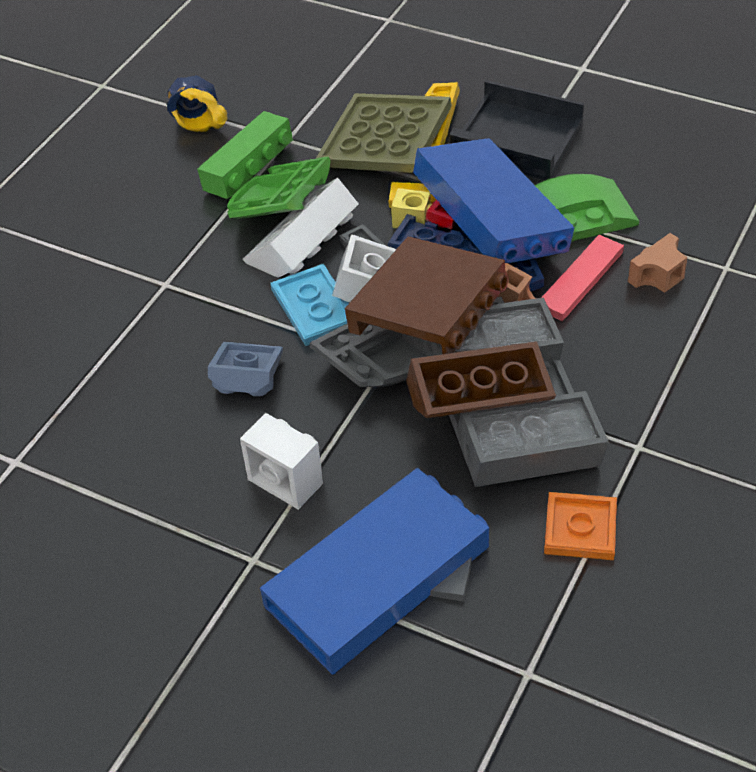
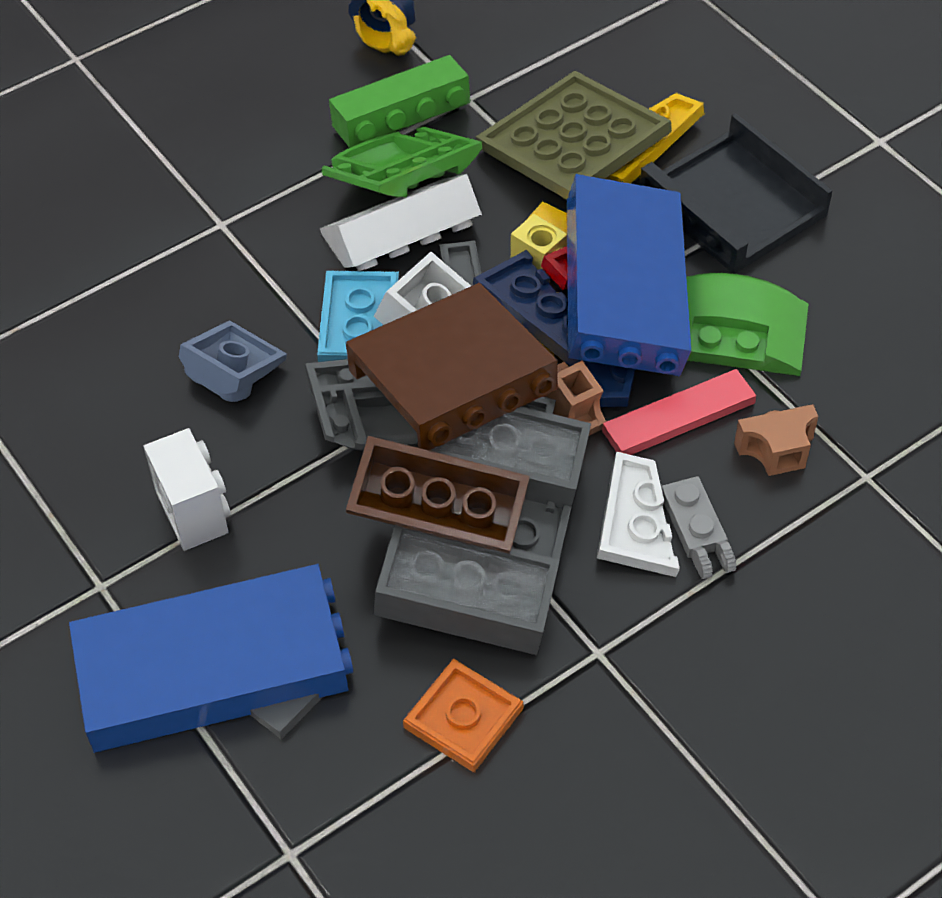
camera: 25 degrees right, 5 degrees up
(601, 352) = (634, 518): none -> white wing
(646, 340) = (697, 525): none -> light grey hinge

